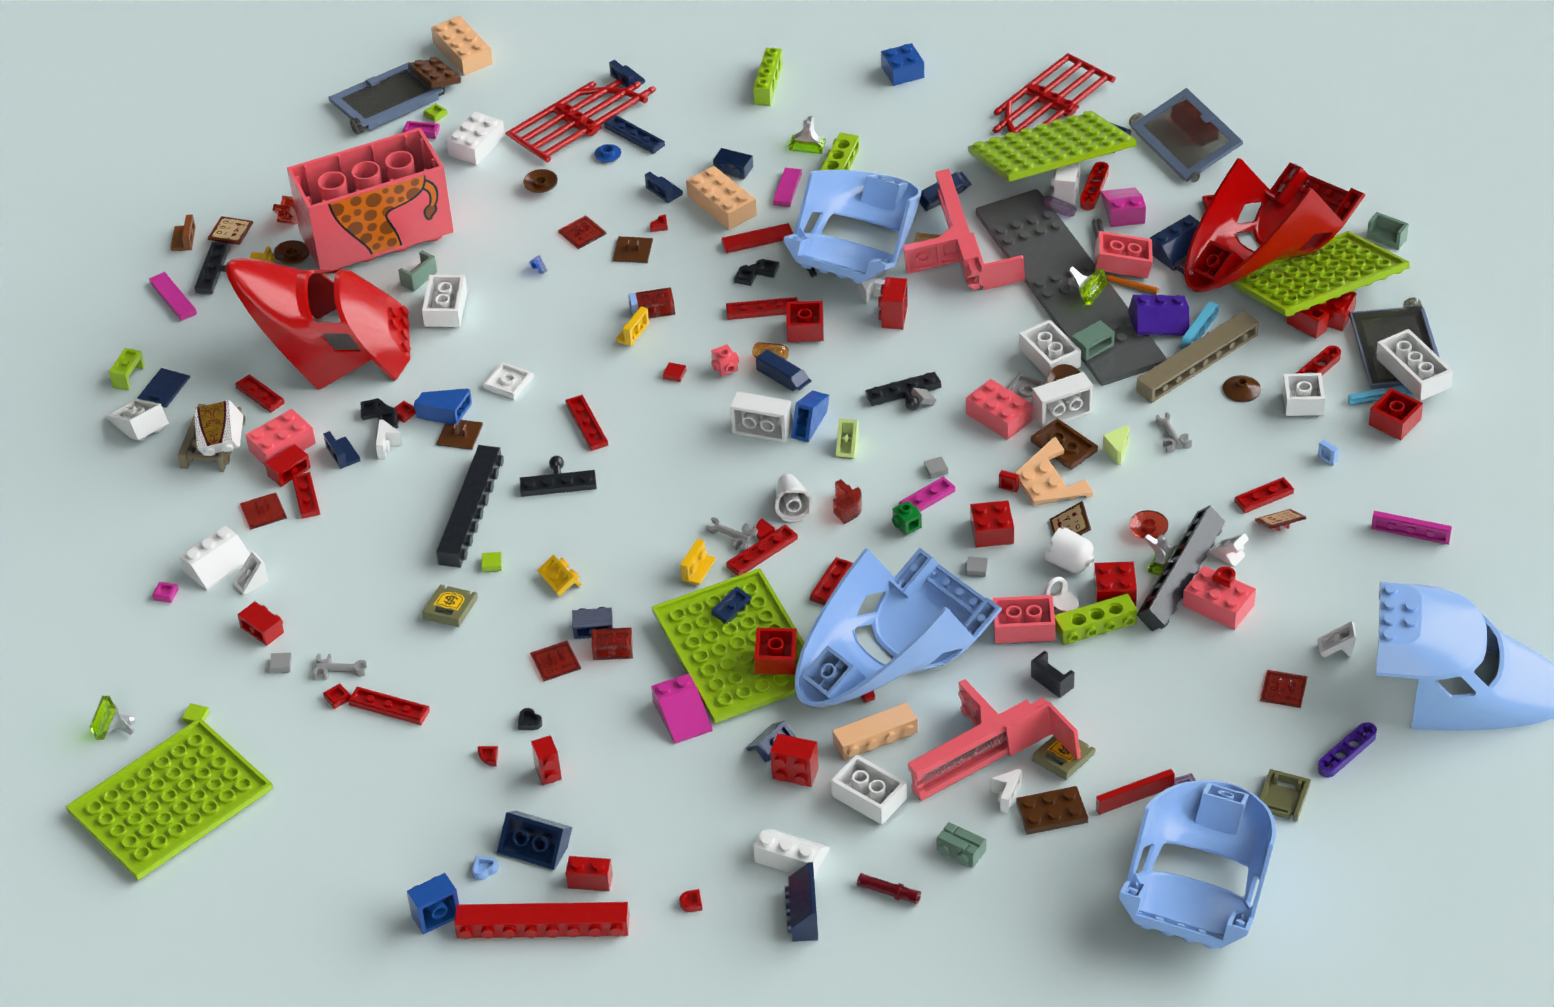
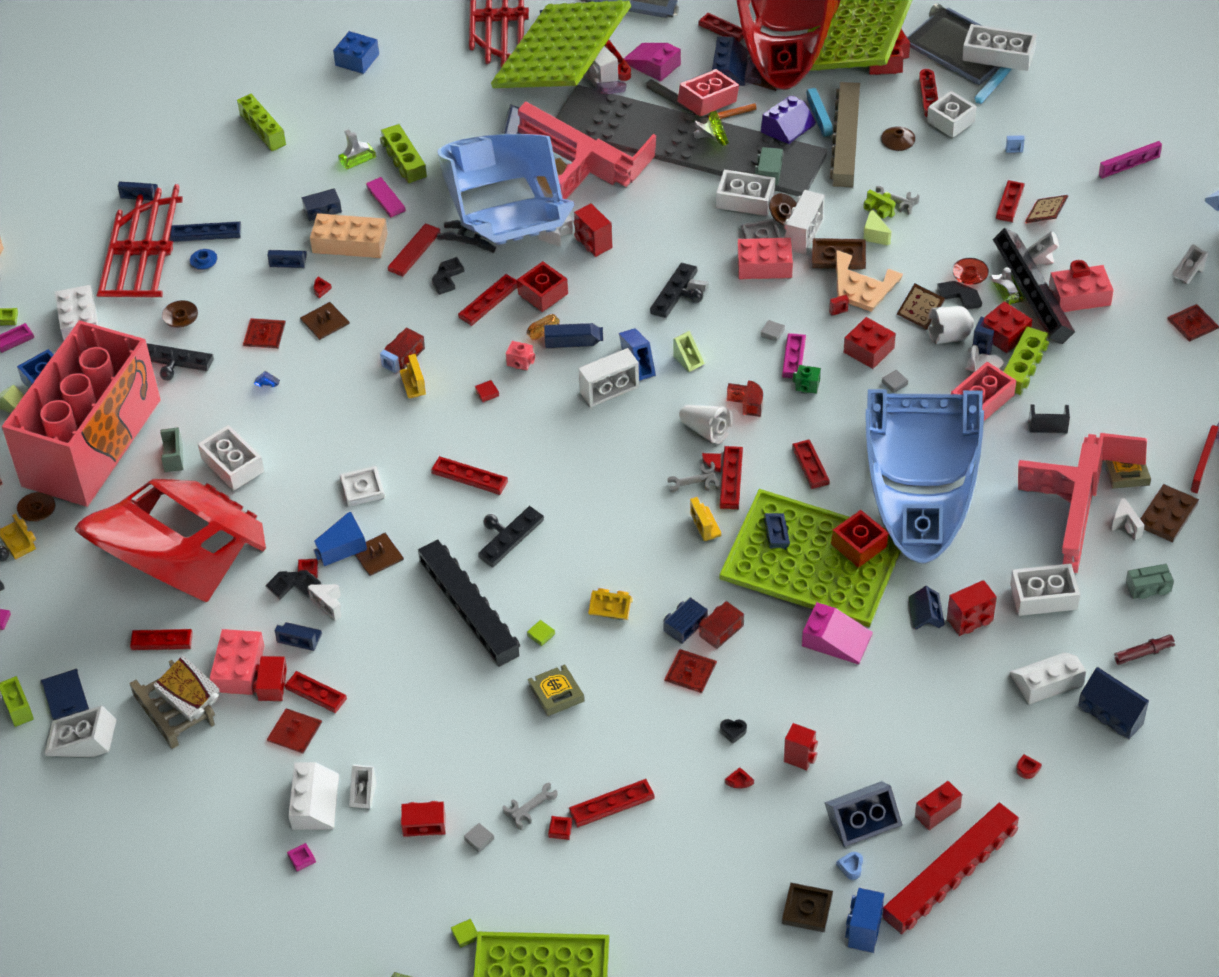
camera: 45 degrees left, 5 degrees up
(415, 867) = (807, 907): none -> dark brown plate
(502, 209) = (178, 357): none -> black plate
(875, 731) = (989, 546): light nougat brick -> none
(1078, 576) = (983, 338): none -> dark blue panel
(1124, 541) = (952, 289): none -> black tile
(1150, 427) = (881, 203): none -> lime hips
(1395, 414) = (1025, 89): red brick -> none

